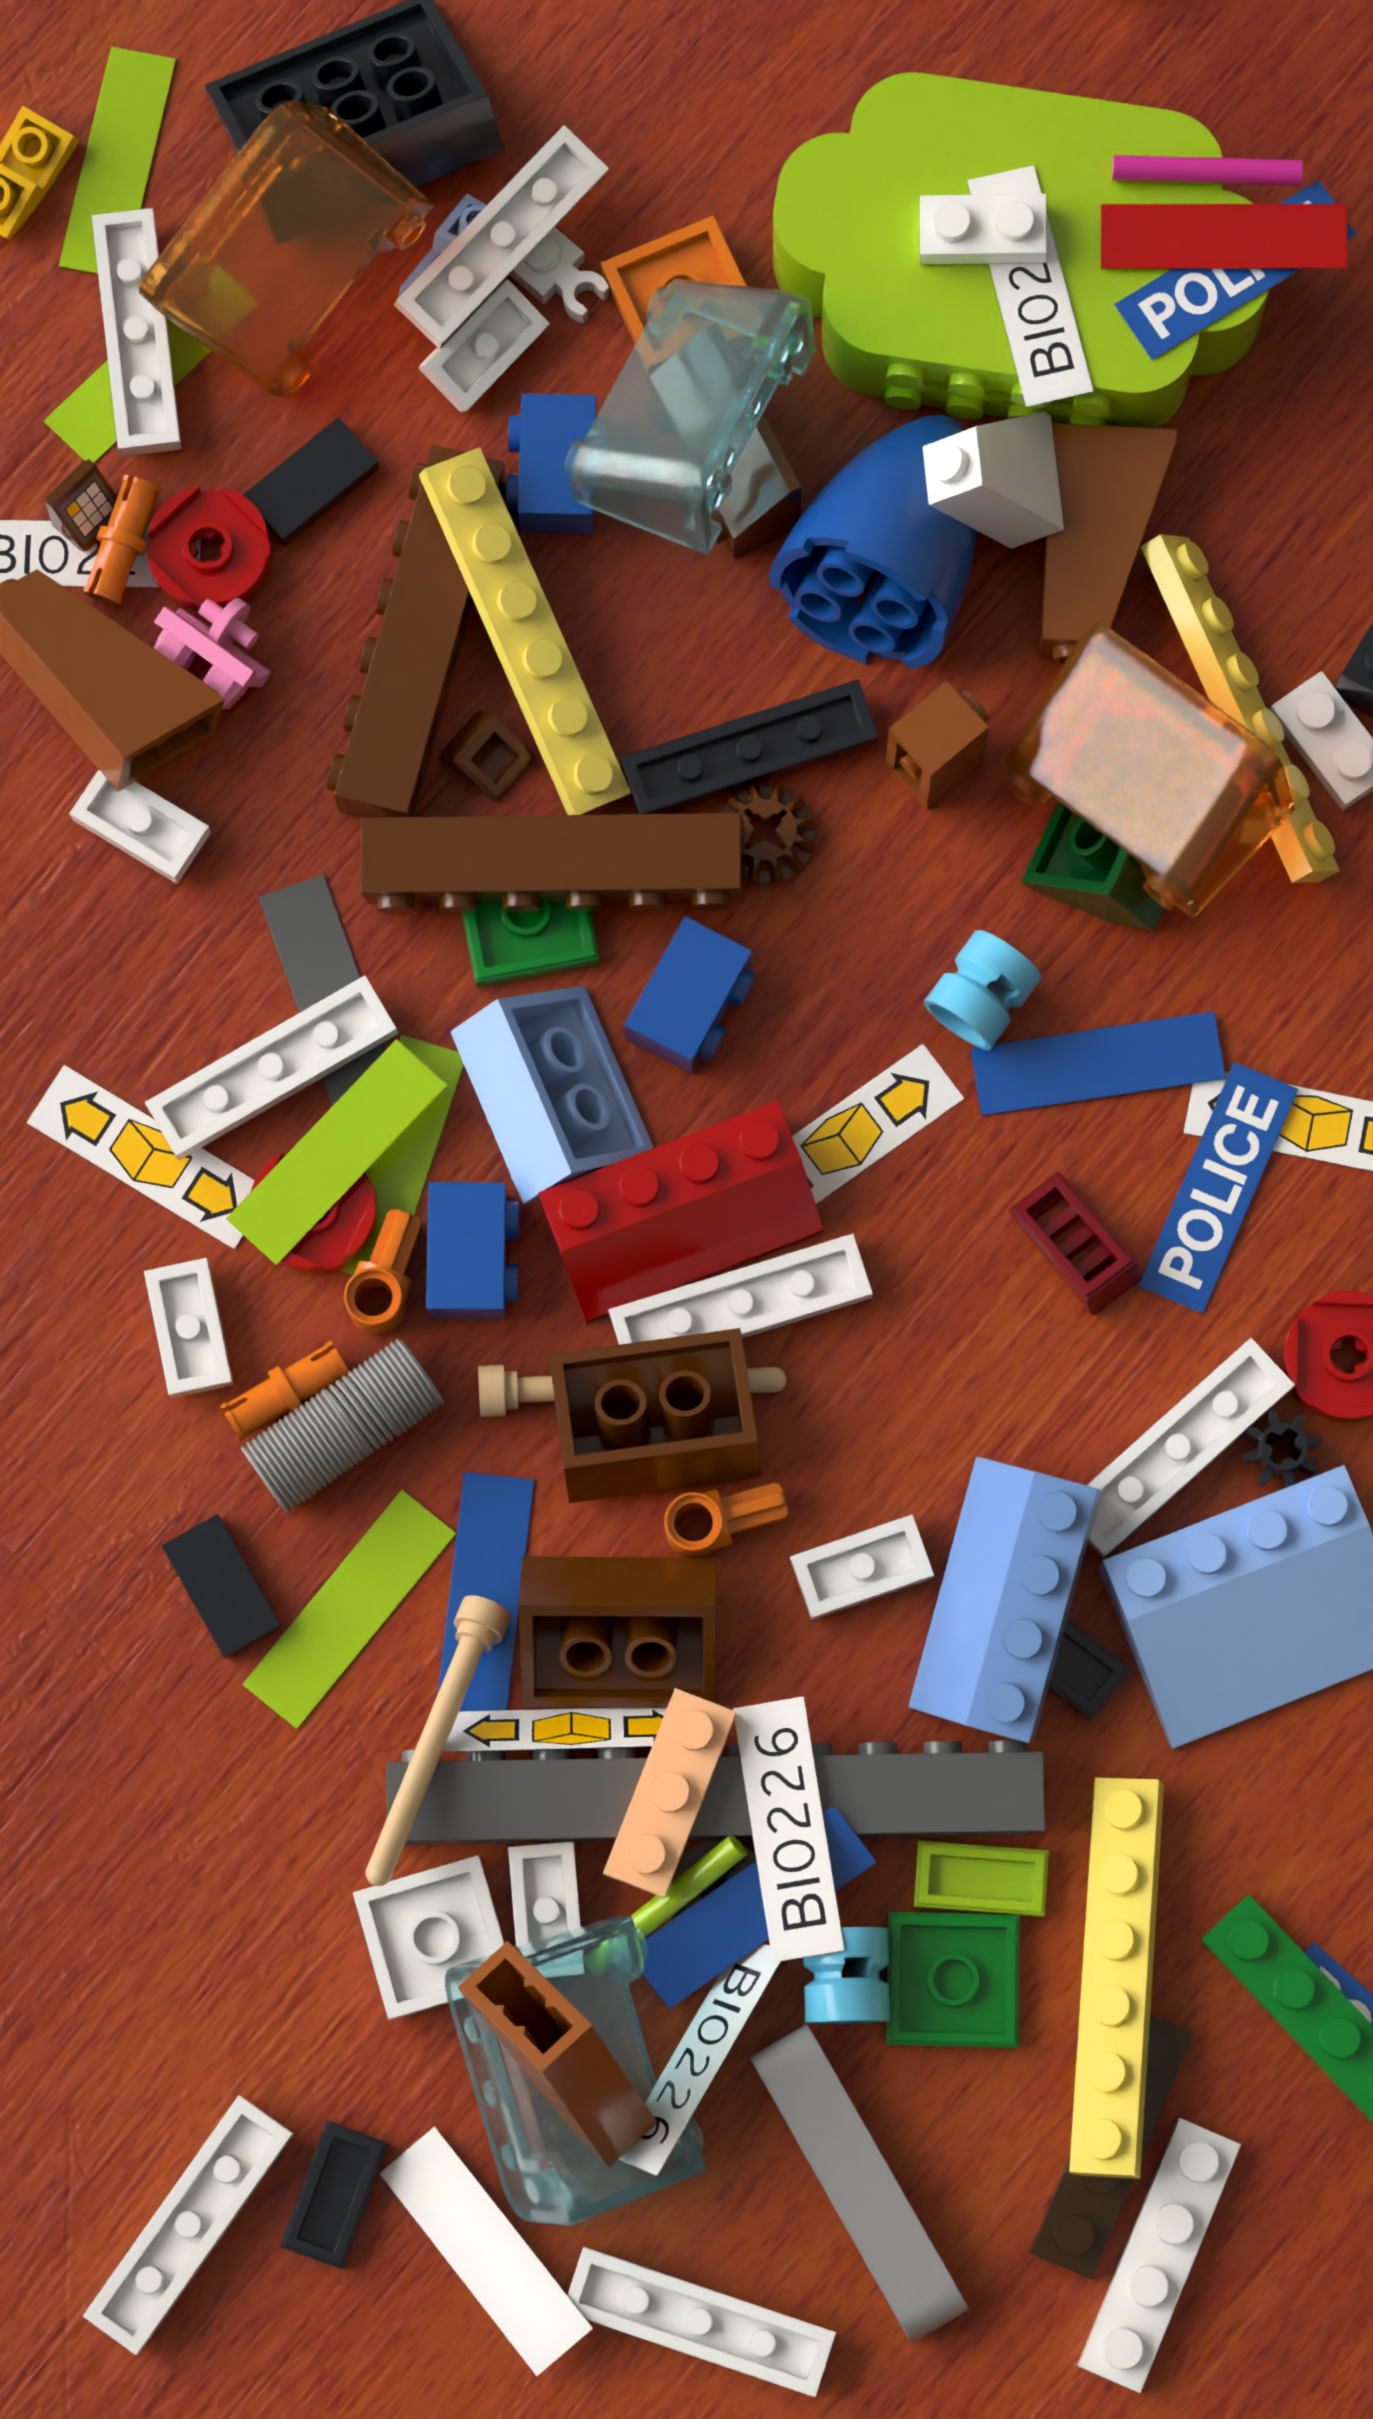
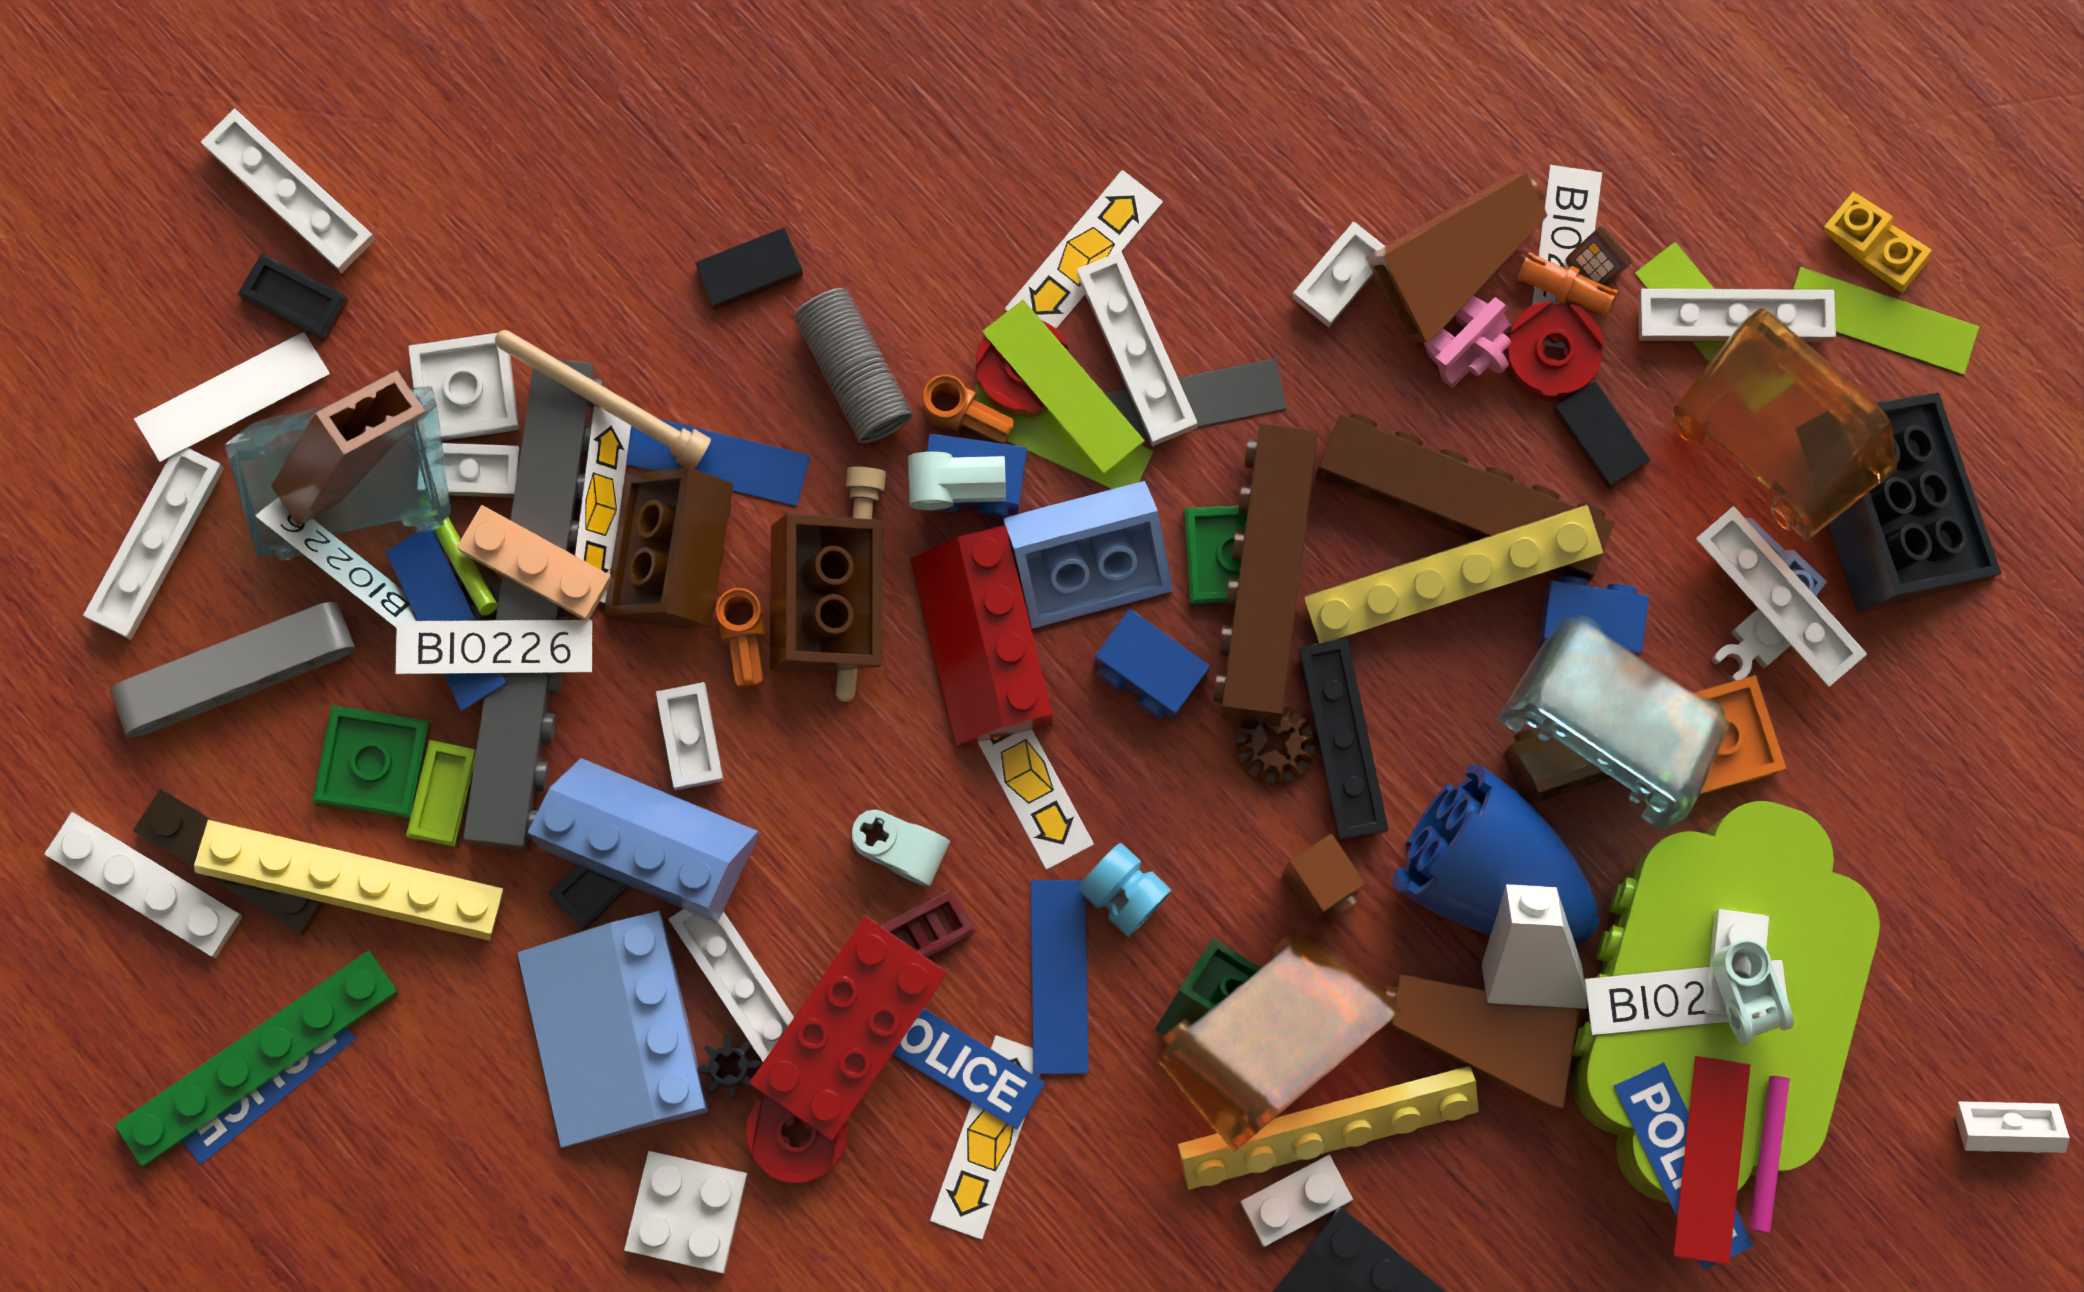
camera: 90 degrees right, 0 degrees up
(188, 1328) = (945, 265): white plate -> none
(284, 1390) = (888, 329): orange pin -> none
(349, 1609) = (720, 360): lime sticker -> none
(484, 346) = (1696, 577): white plate -> none
(487, 754) = (1365, 540): reddish brown slope -> none
(491, 1274) = (941, 481): none -> light aqua piece
(752, 1296) = (908, 679): white plate -> none
(853, 1999) = (365, 682): medium azure wheel -> none
(967, 1273) = (909, 850): none -> light aqua piece
(1033, 192) = (1751, 995): none -> light aqua piece
(1212, 1303) = (848, 1028): none -> red plate

